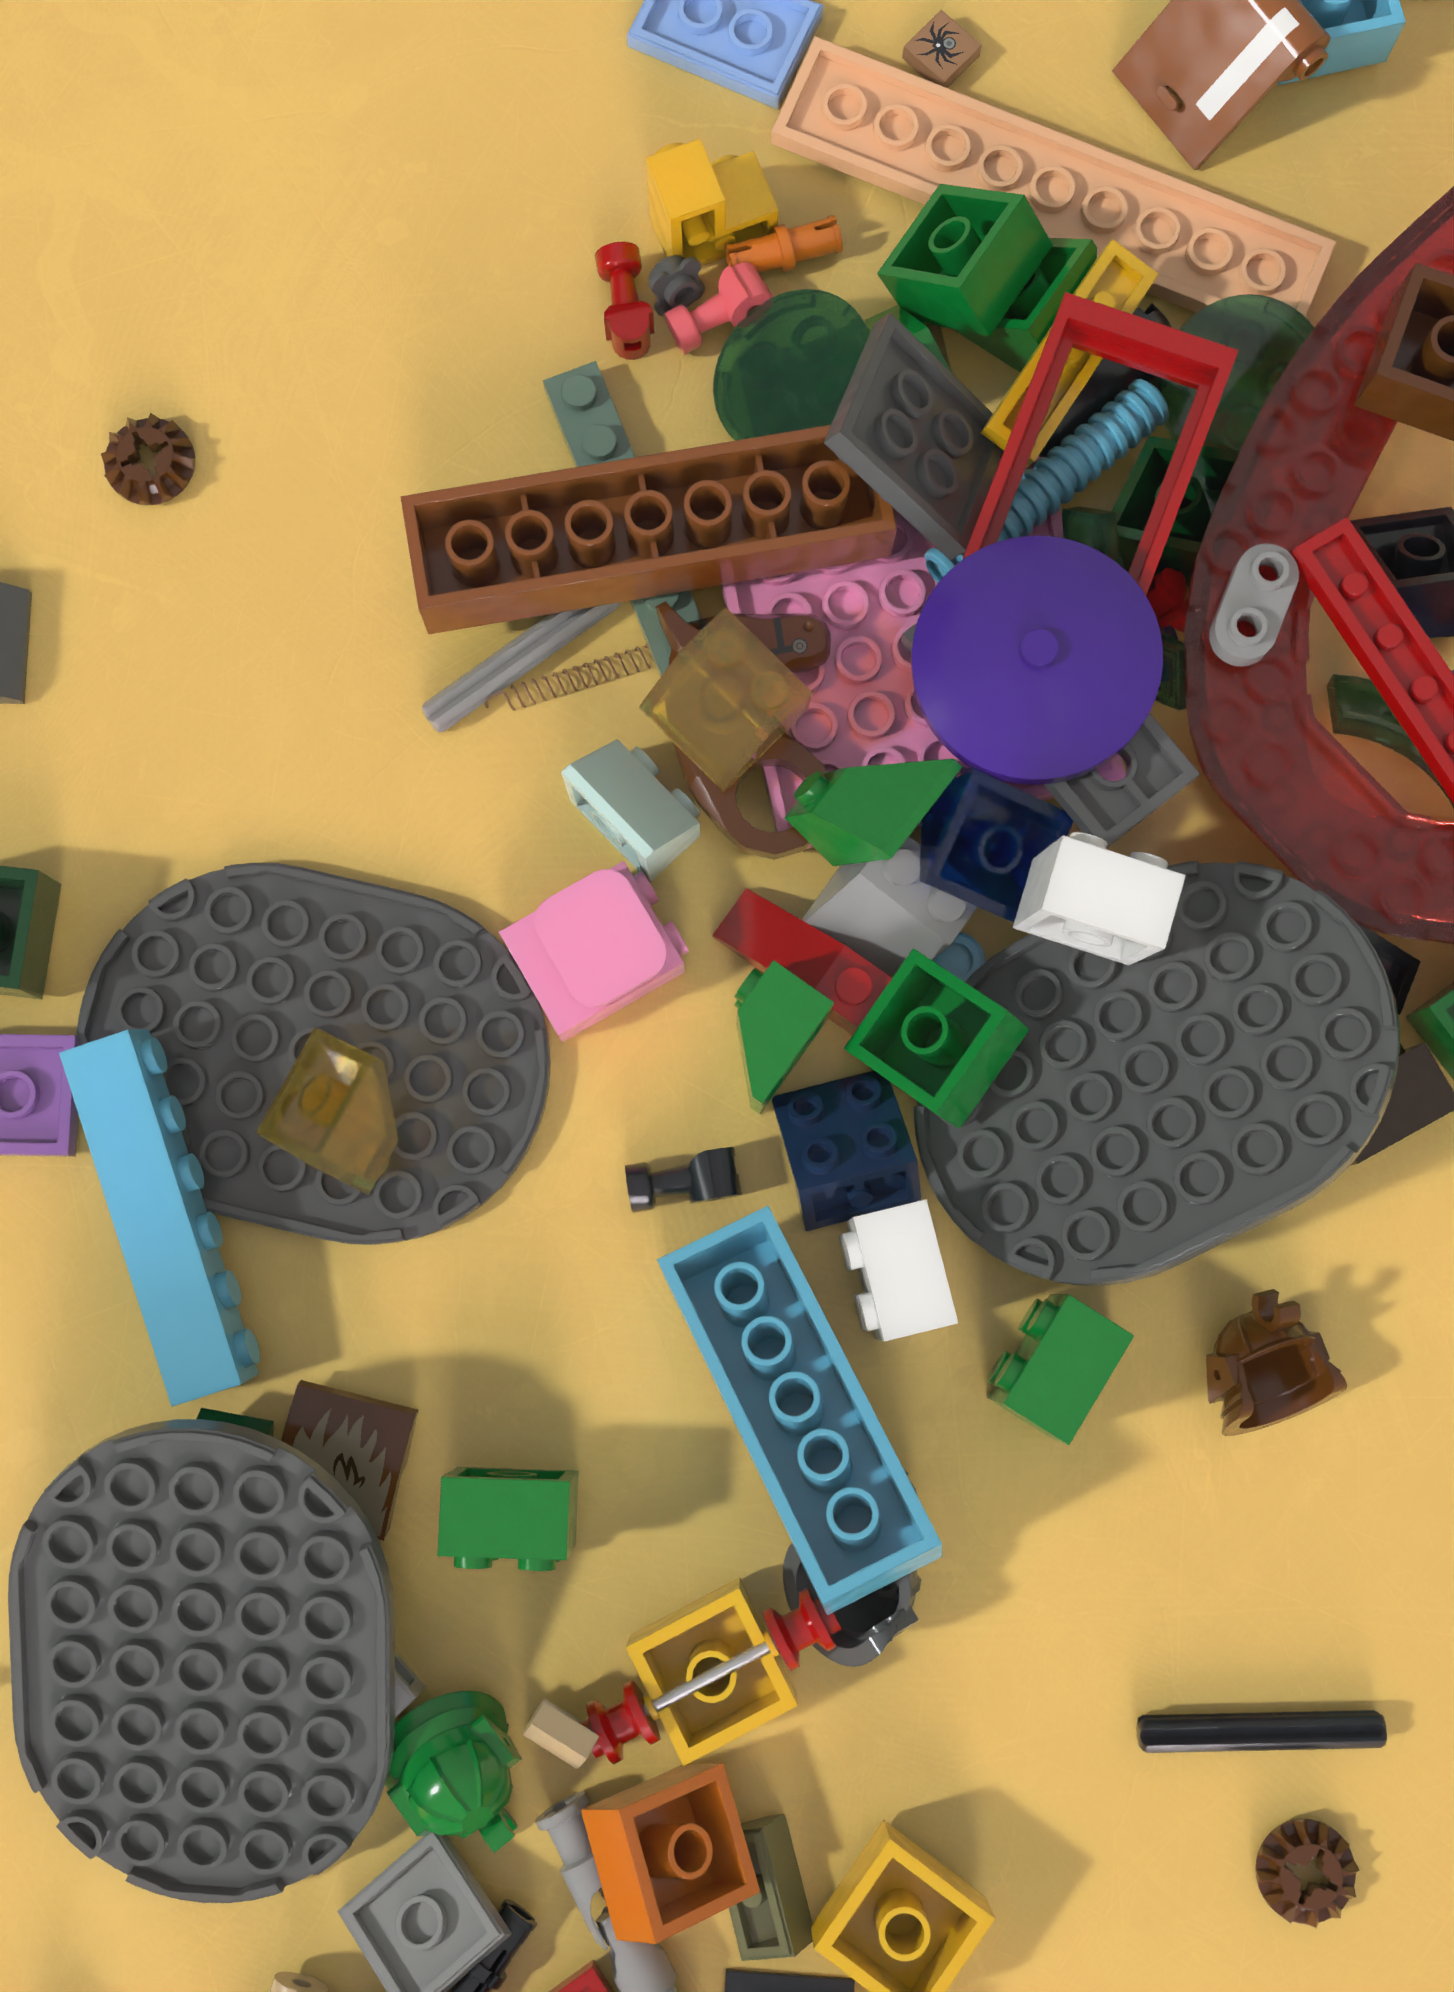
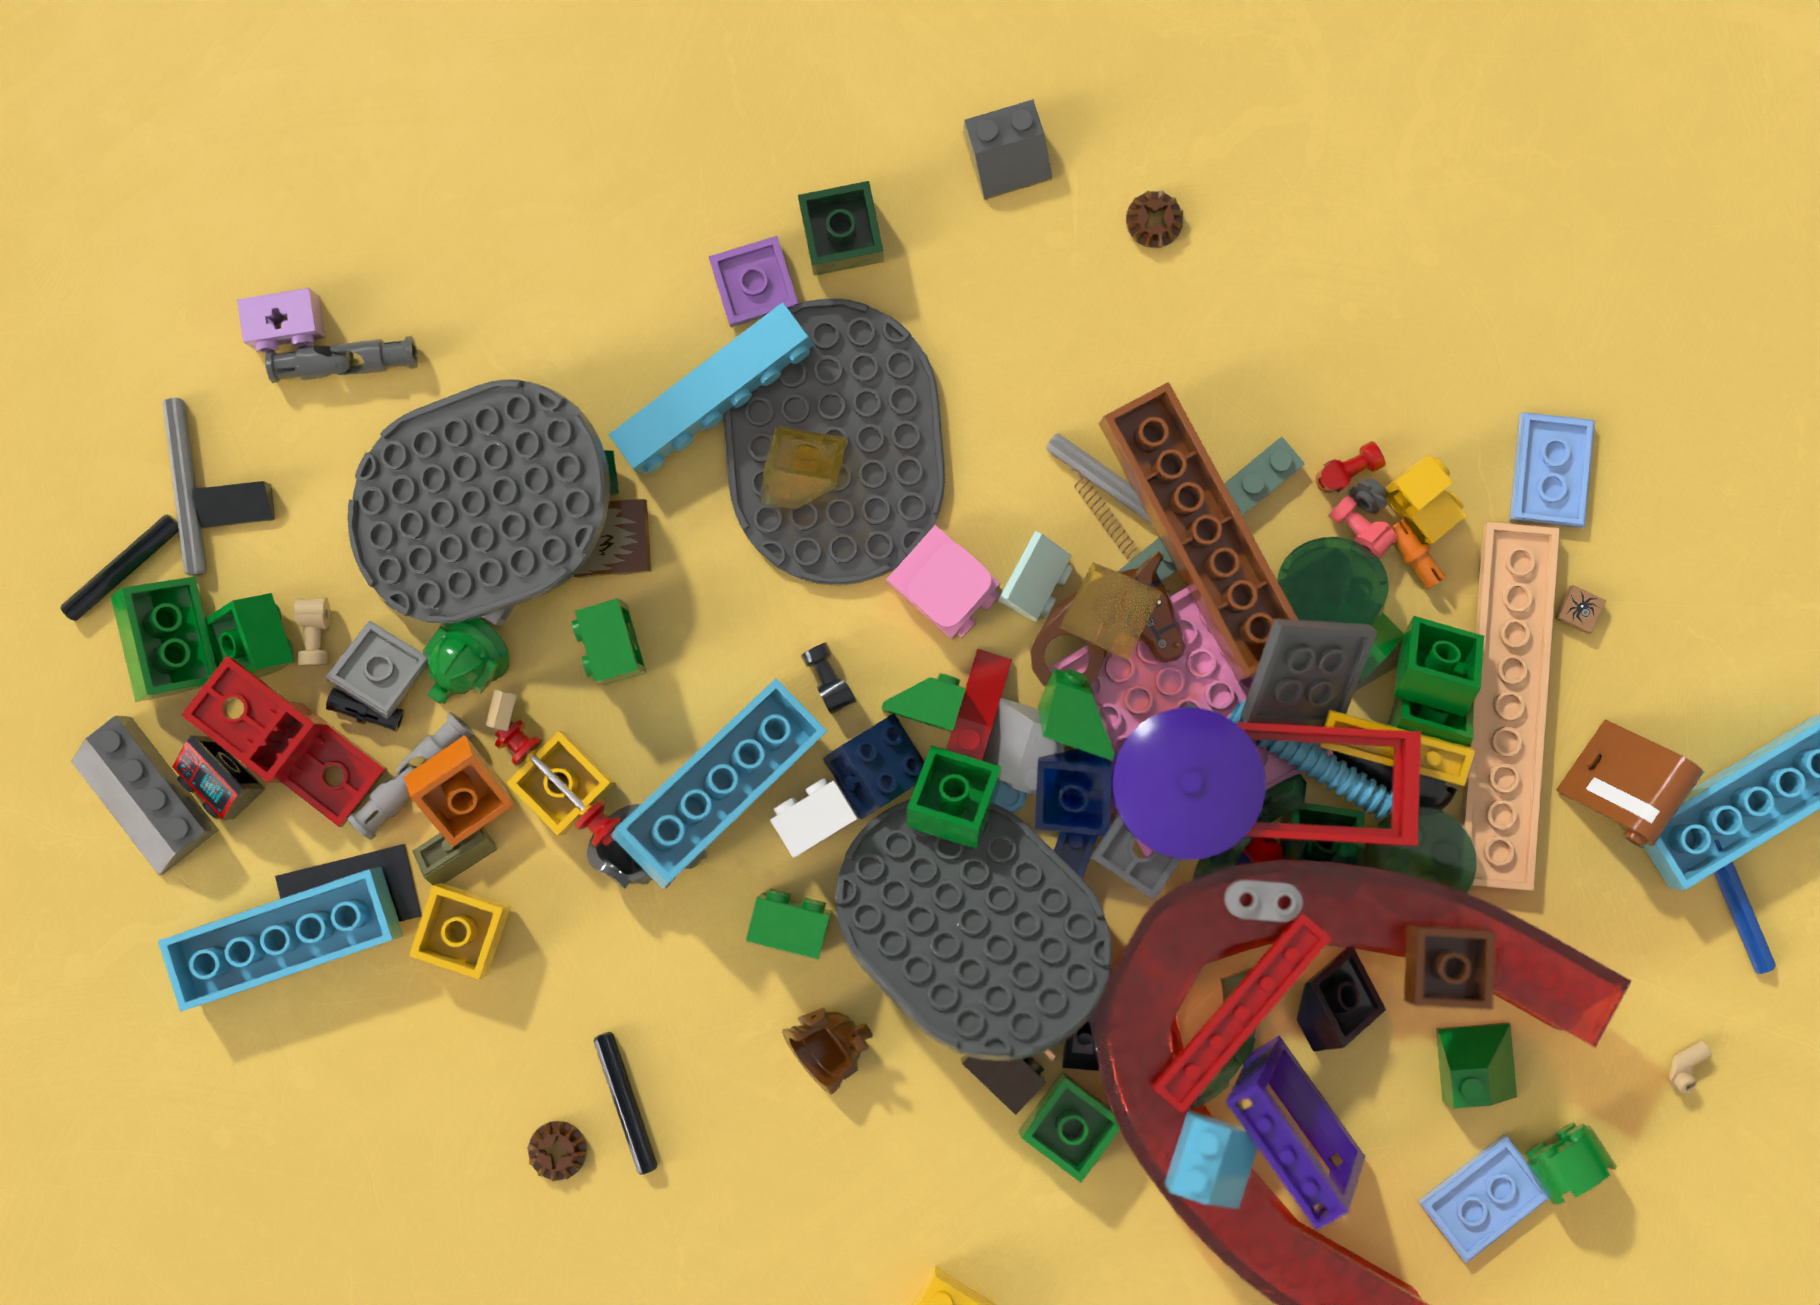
camera: 70 degrees right, 5 degrees up
(1100, 899) = (1057, 862): white brick -> none

